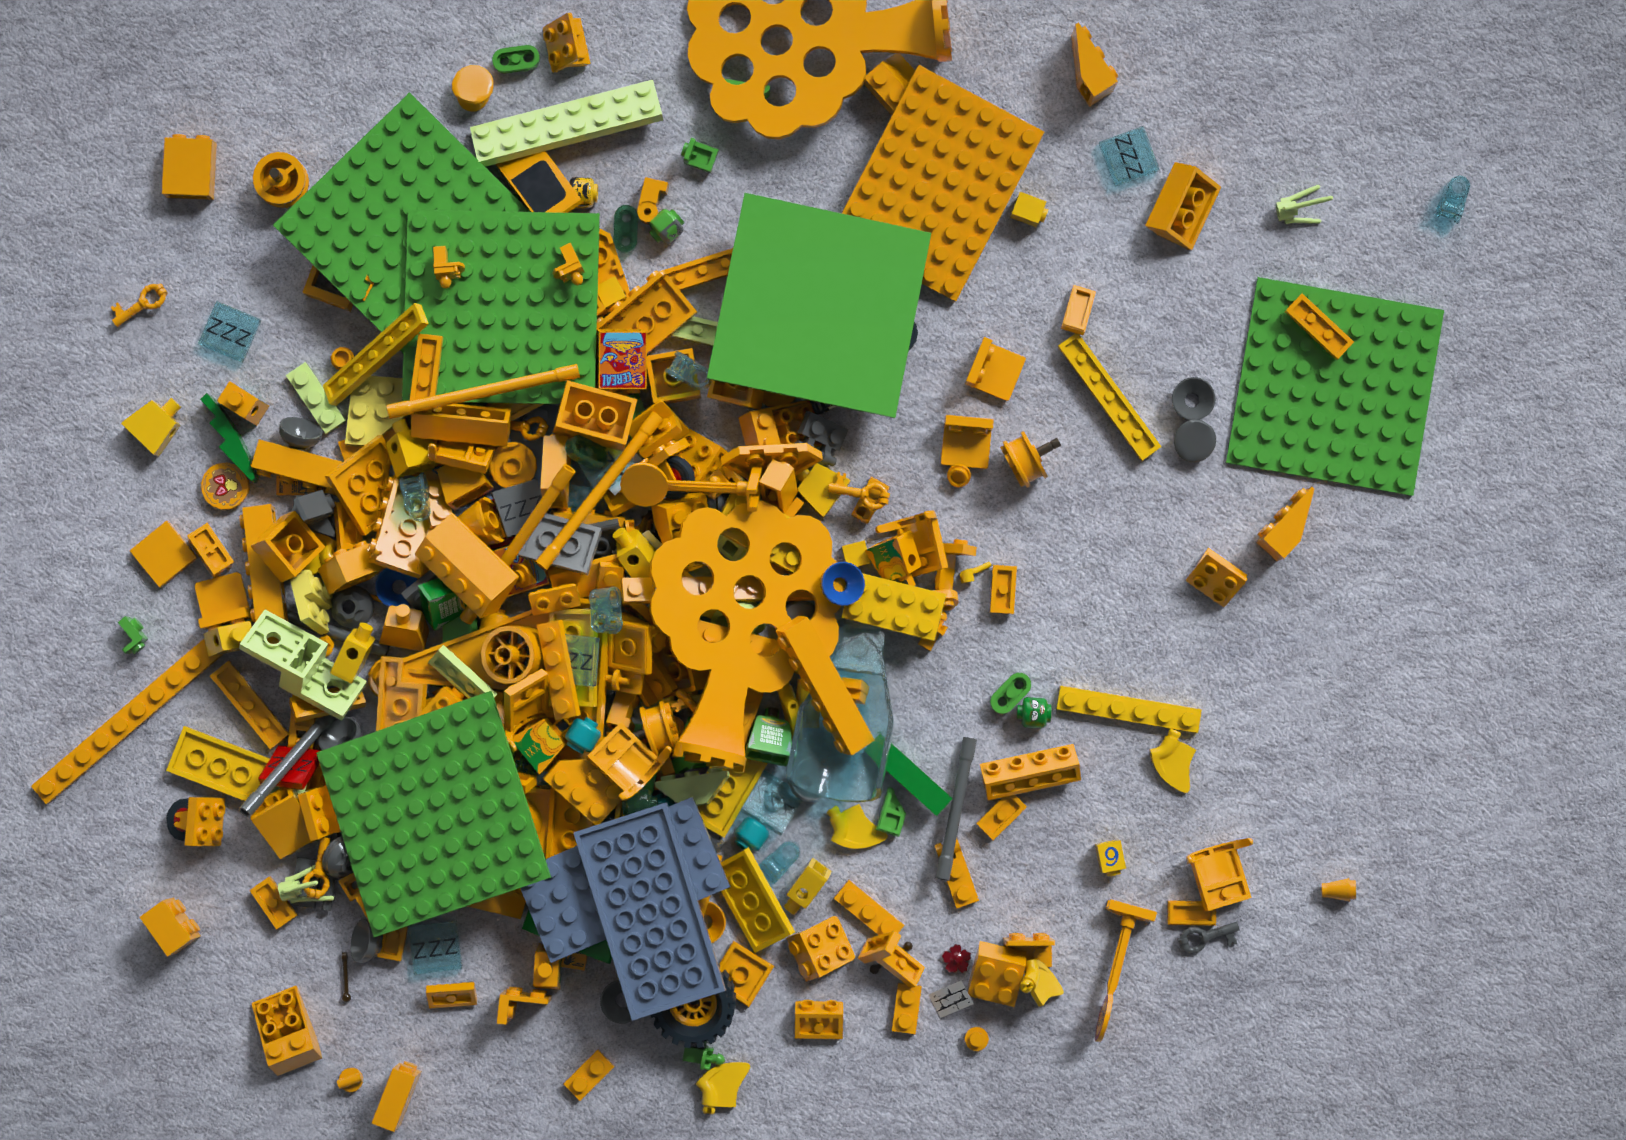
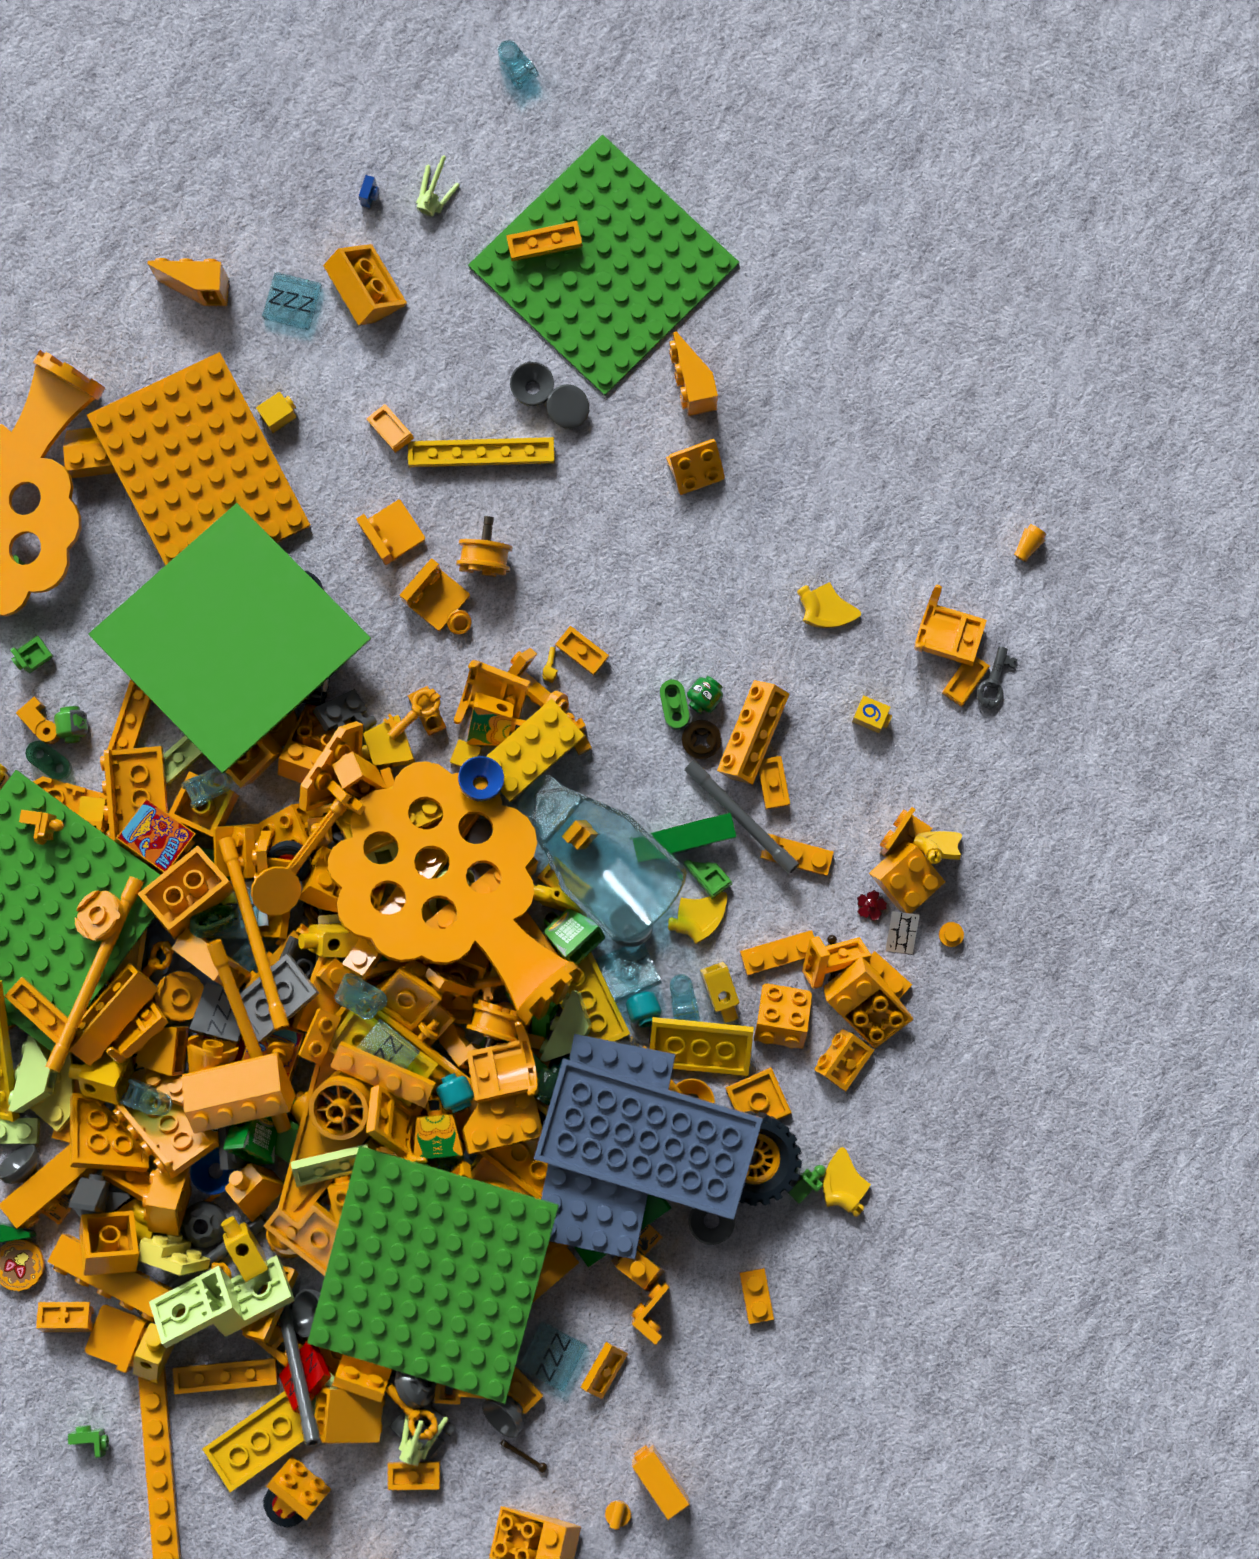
camera: 50 degrees left, 5 degrees down
(163, 554) = (39, 1362): light orange tile -> none
(373, 395) = (32, 1078): none -> yellowish green slope
(529, 362) = (99, 915): none -> light orange tile
(665, 671) = (449, 982): none -> light orange plate
(824, 685) = (557, 853): light orange brick -> none
(875, 1008) = (867, 1003): none -> light orange slope
(1002, 744) = (702, 728): none -> dark brown gear
(1128, 709) = (756, 615): yellow plate -> none
(1129, 916) = (932, 731): light orange piece -> none
(1262, 155) = (368, 192): none -> blue plate

